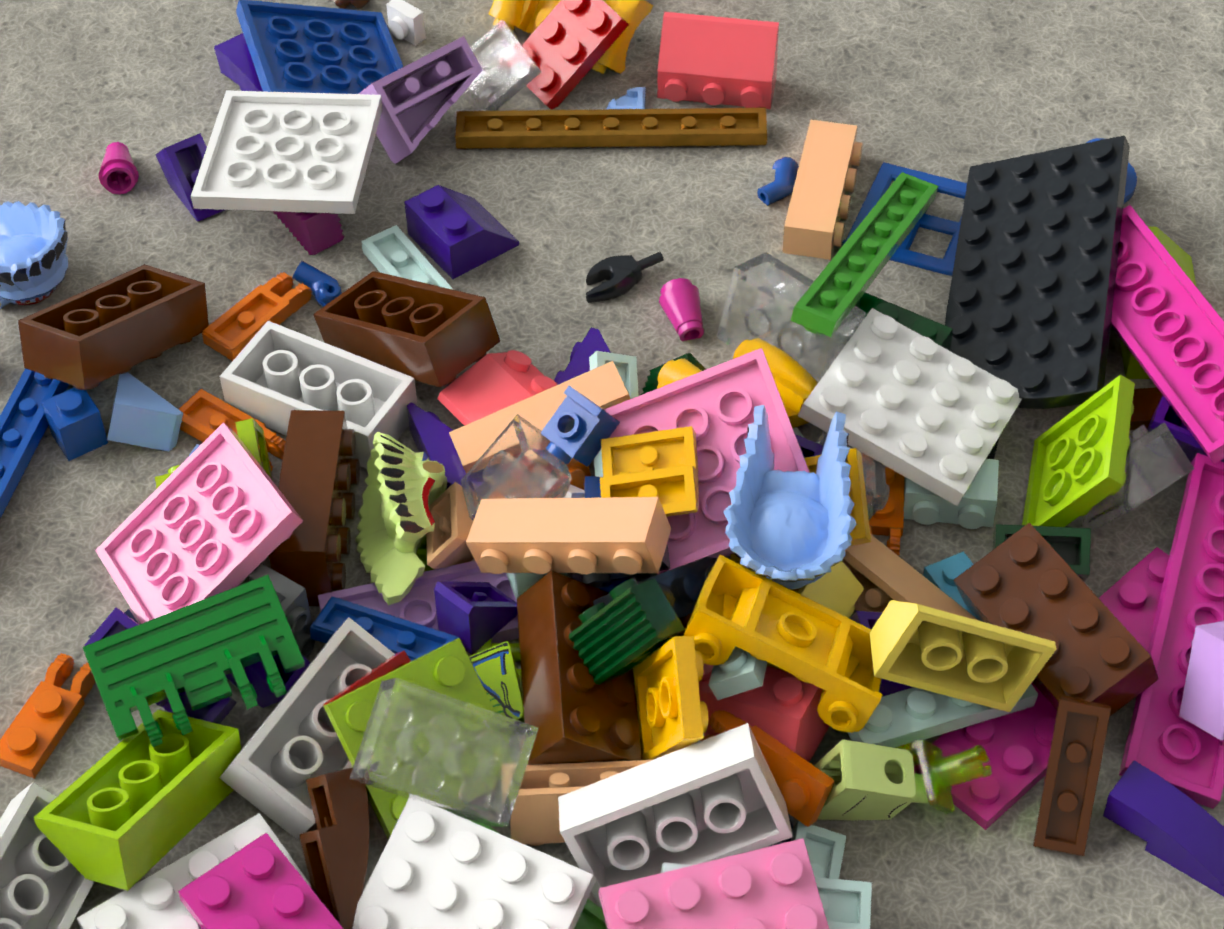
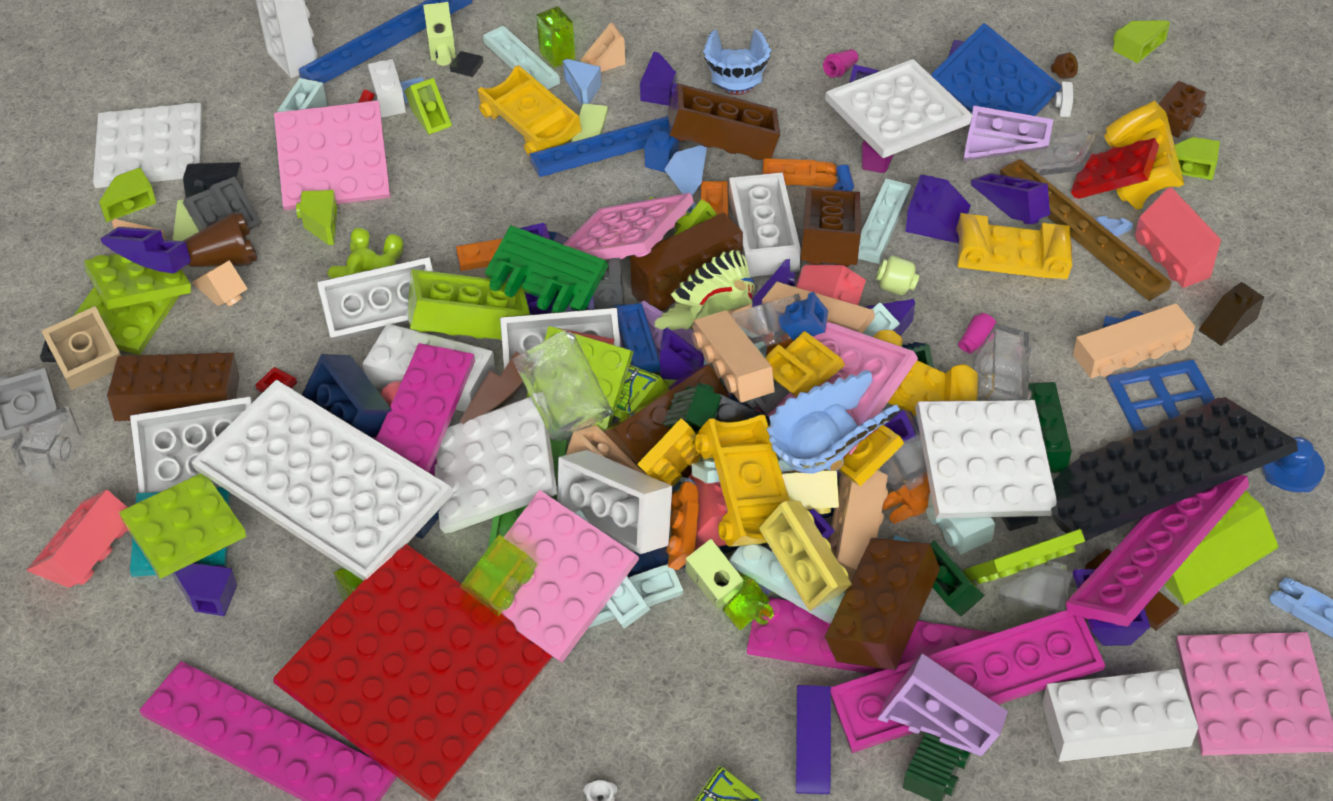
camera: 55 degrees right, 0 degrees up
(510, 150) = (1016, 197): none -> dark purple slope
(526, 323) = (897, 275): none -> yellowish green head
(591, 199) = (1014, 250): none -> yellow piece
(622, 274) = (976, 293): black hand -> none
(856, 89) = (1232, 314): none -> dark brown slope
(863, 255) = (1079, 376): bright green plate -> none
(1071, 775) = (794, 661): reddish brown plate -> none

